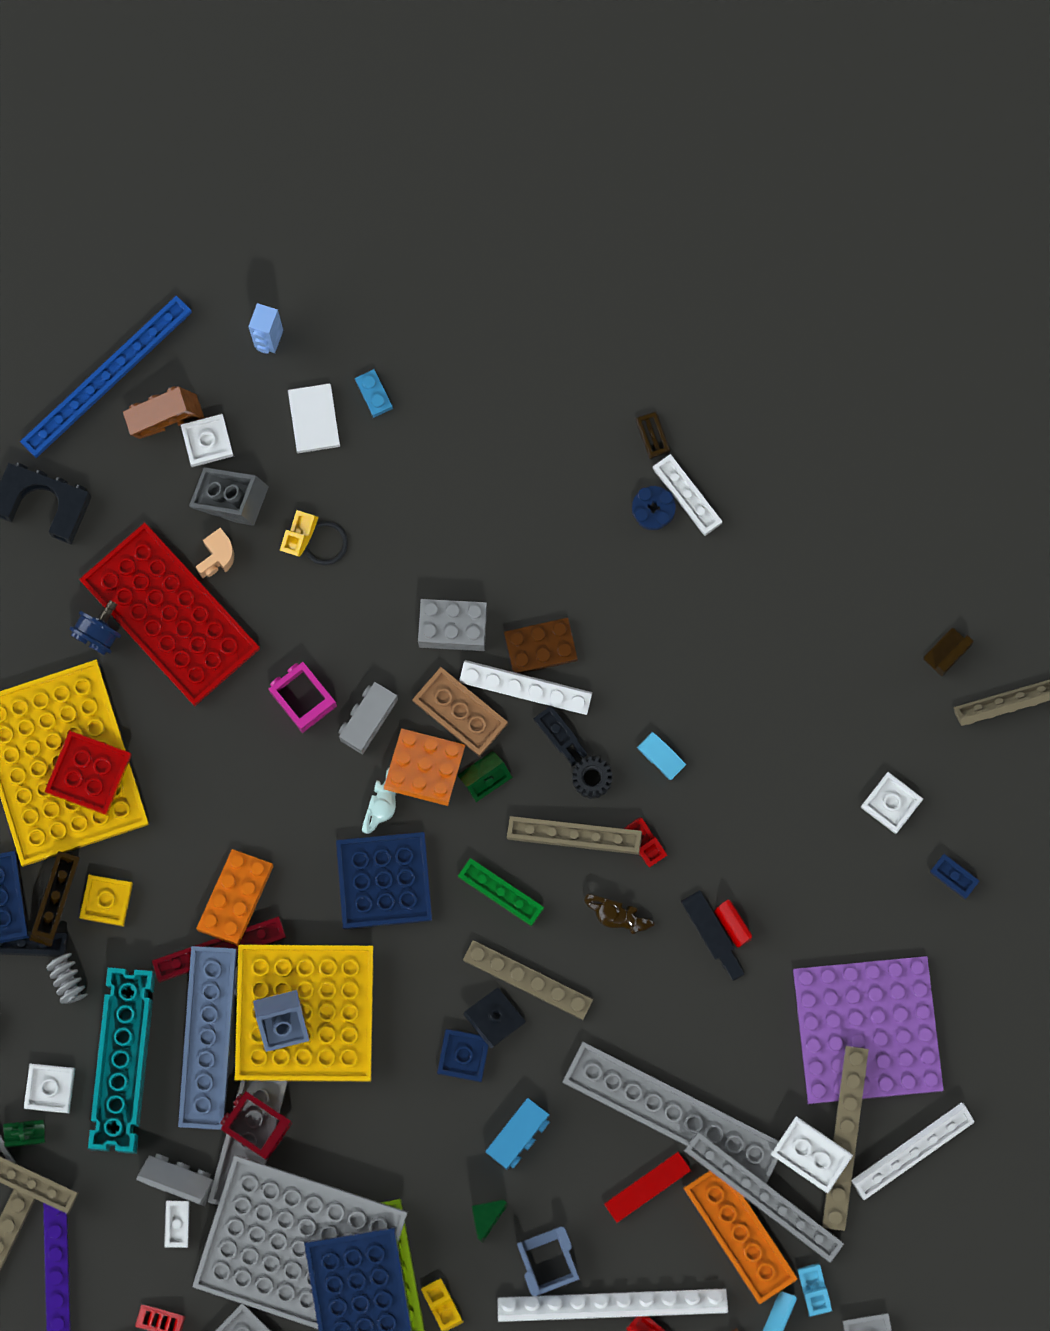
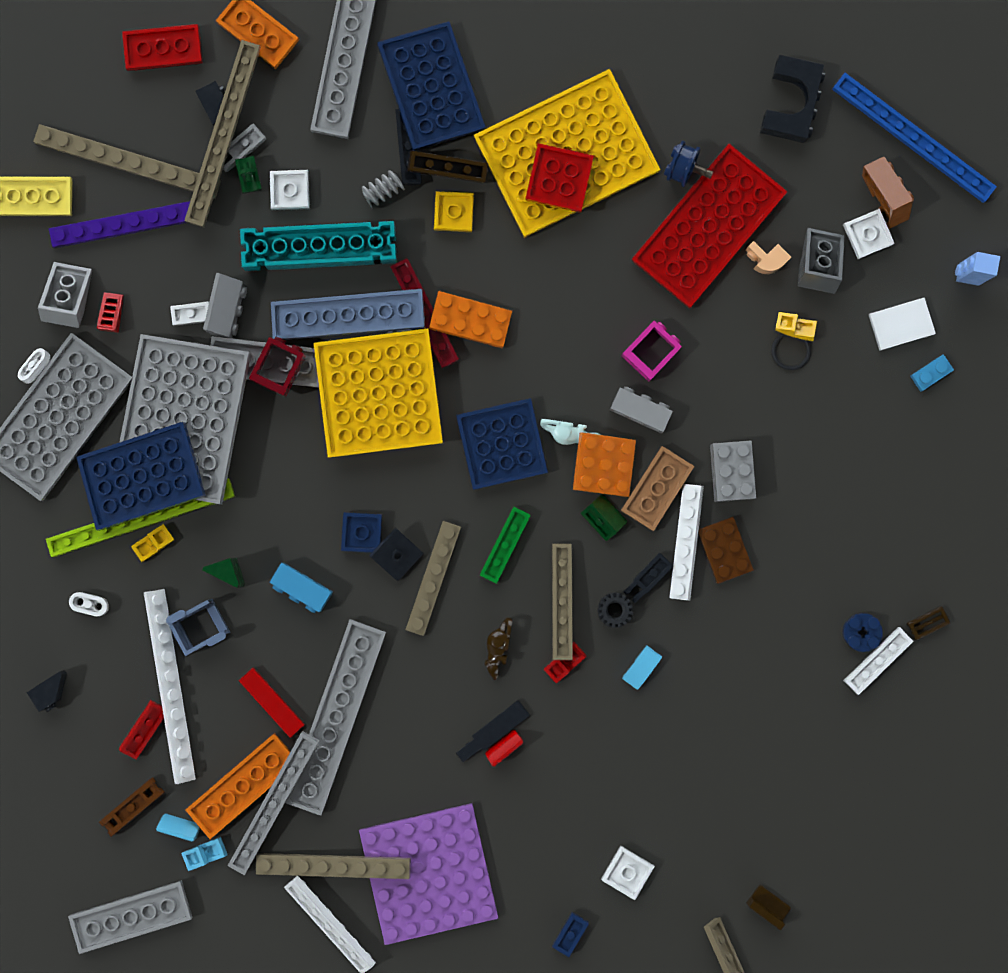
camera: 75 degrees right, 10 degrees up
(281, 1020) = (366, 373): sand blue slope -> none
(812, 1154) = (313, 840): white tile -> none

